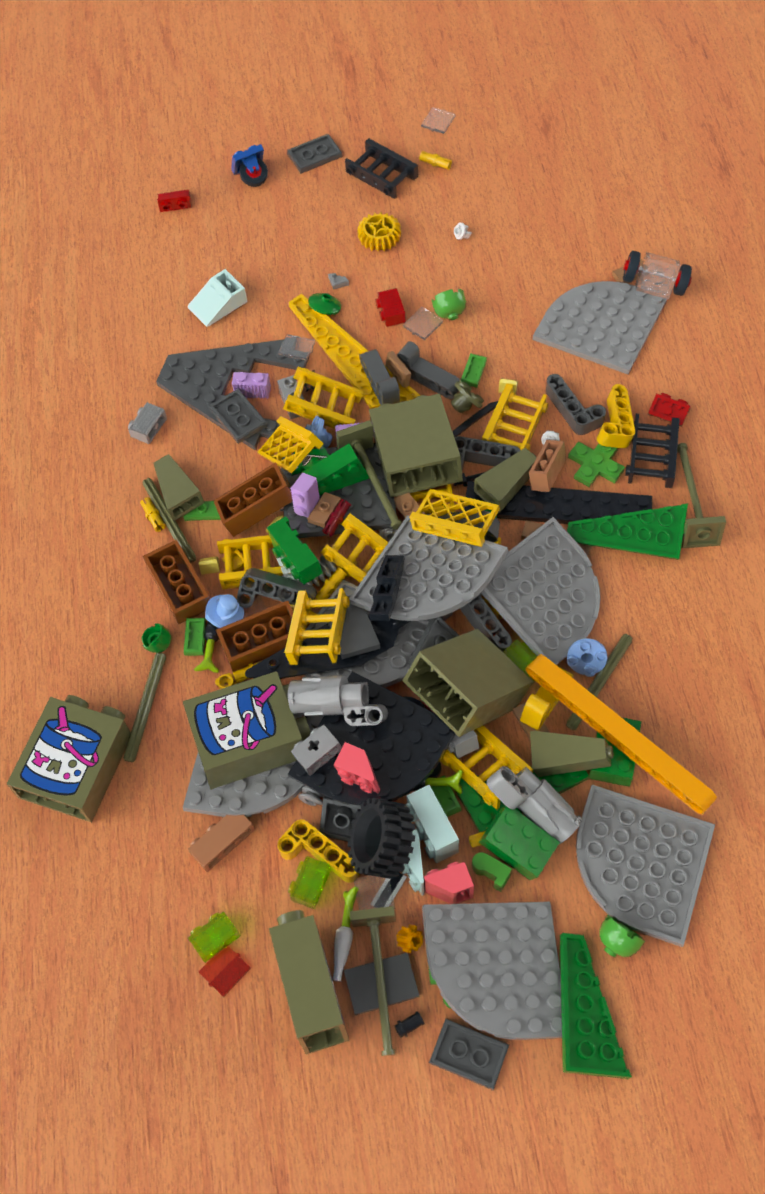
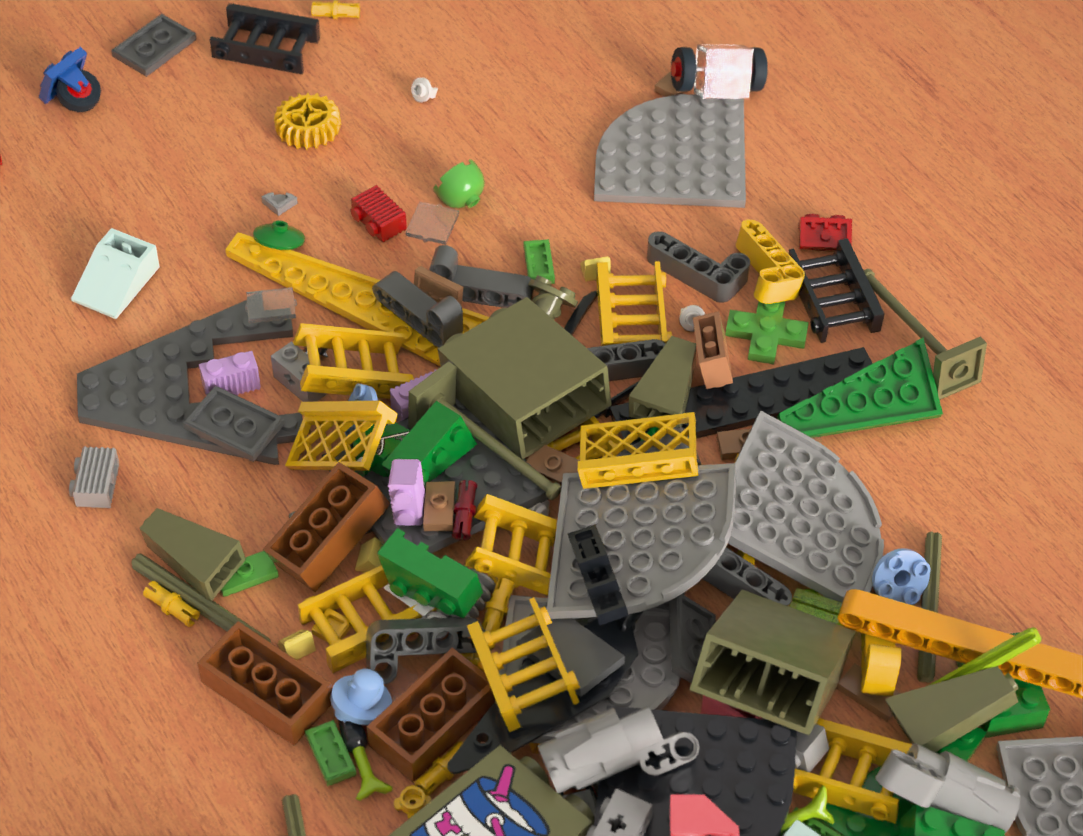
camera: 30 degrees left, 10 degrees down
(156, 638) = (274, 775): green hair -> none
(606, 732) = (997, 655): none -> lime axle

